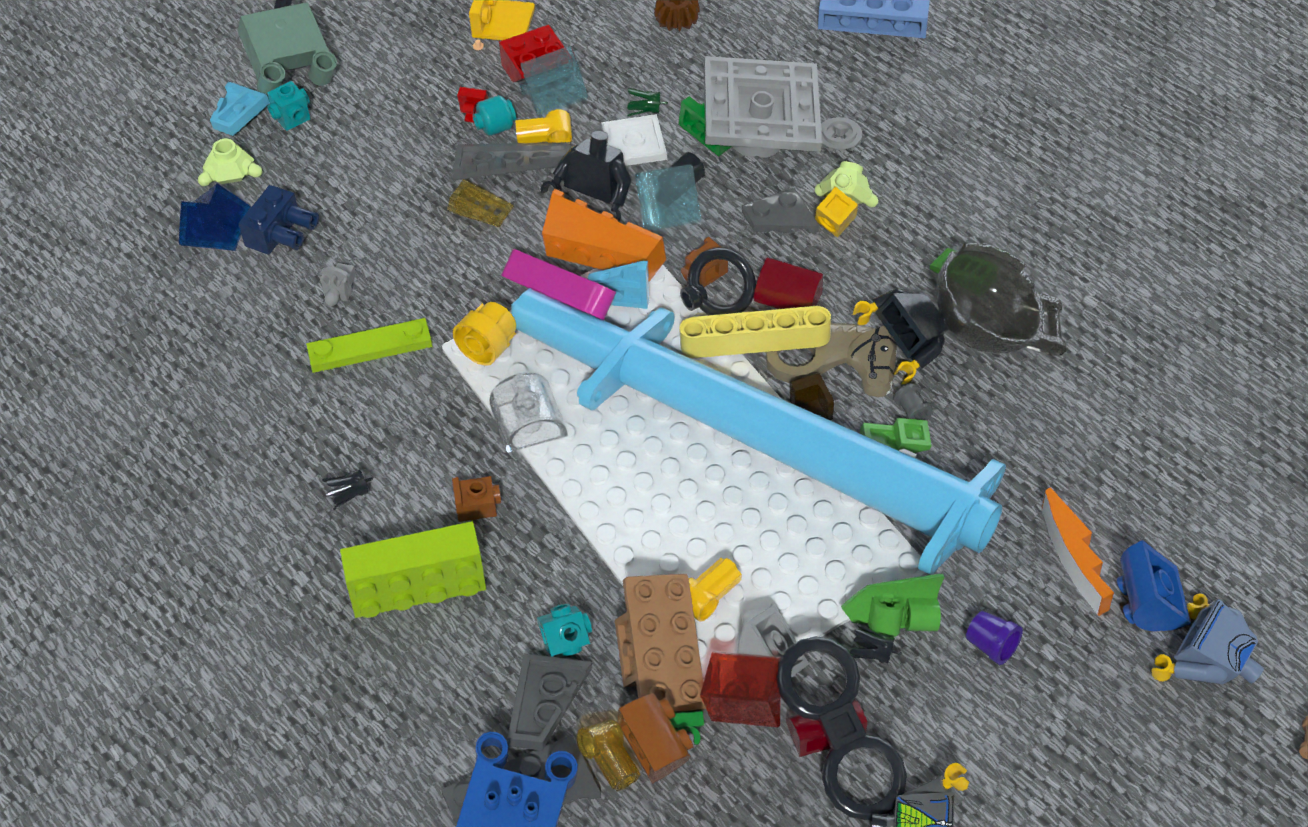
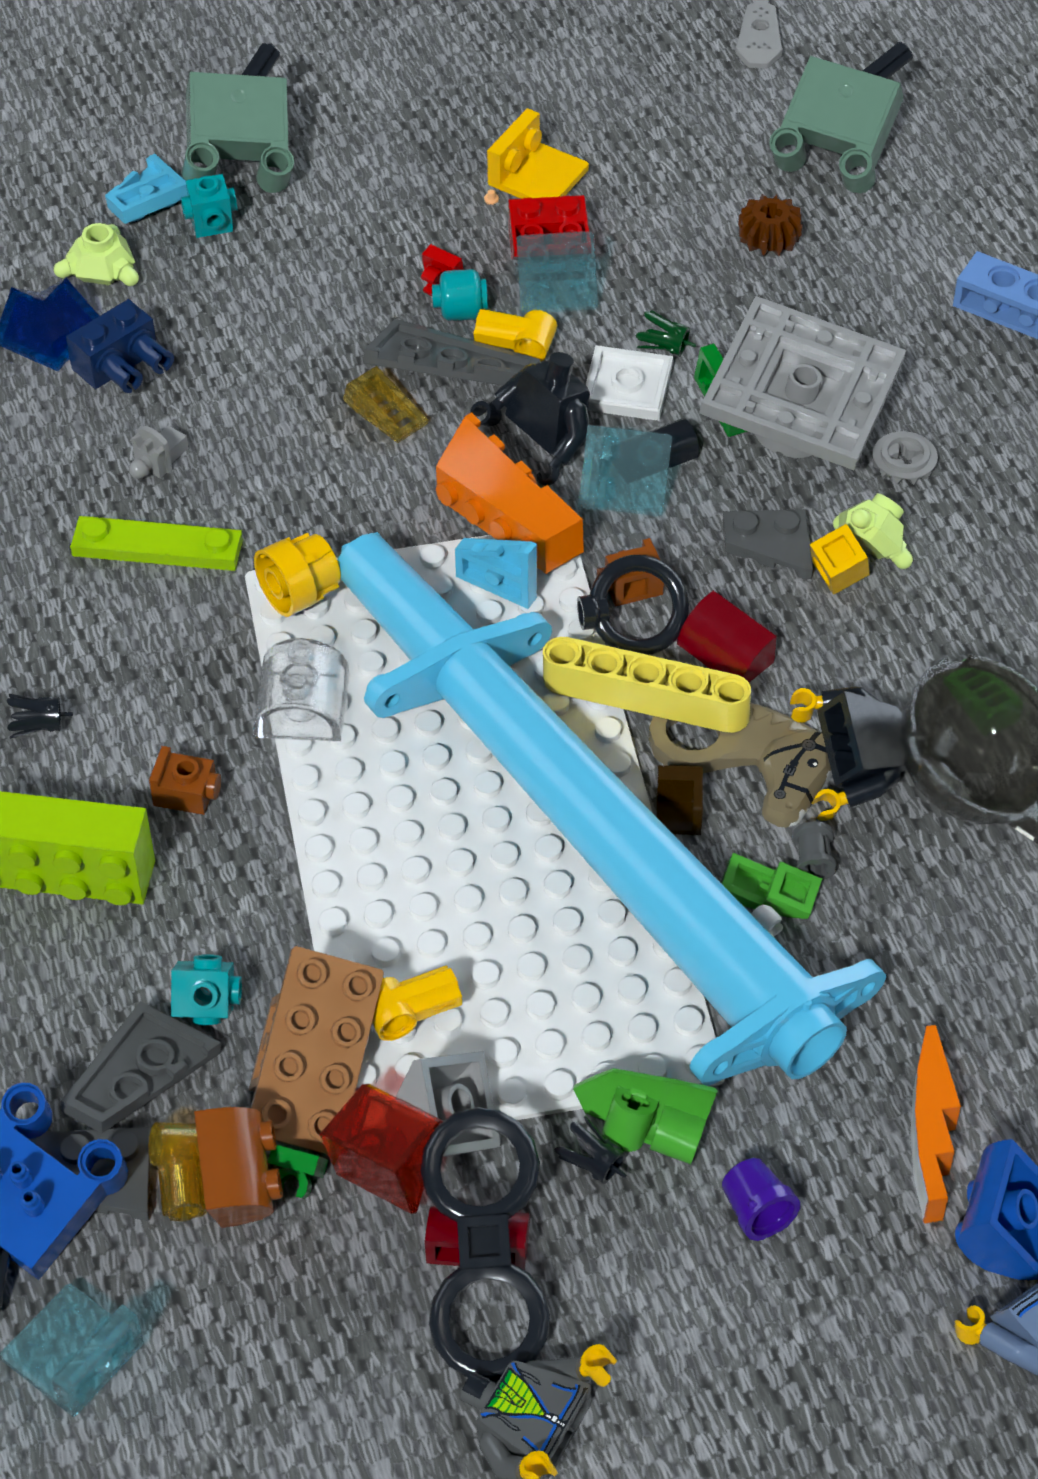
camera: 20 degrees right, 0 degrees up
(558, 284) = (420, 540): dark pink beam -> none

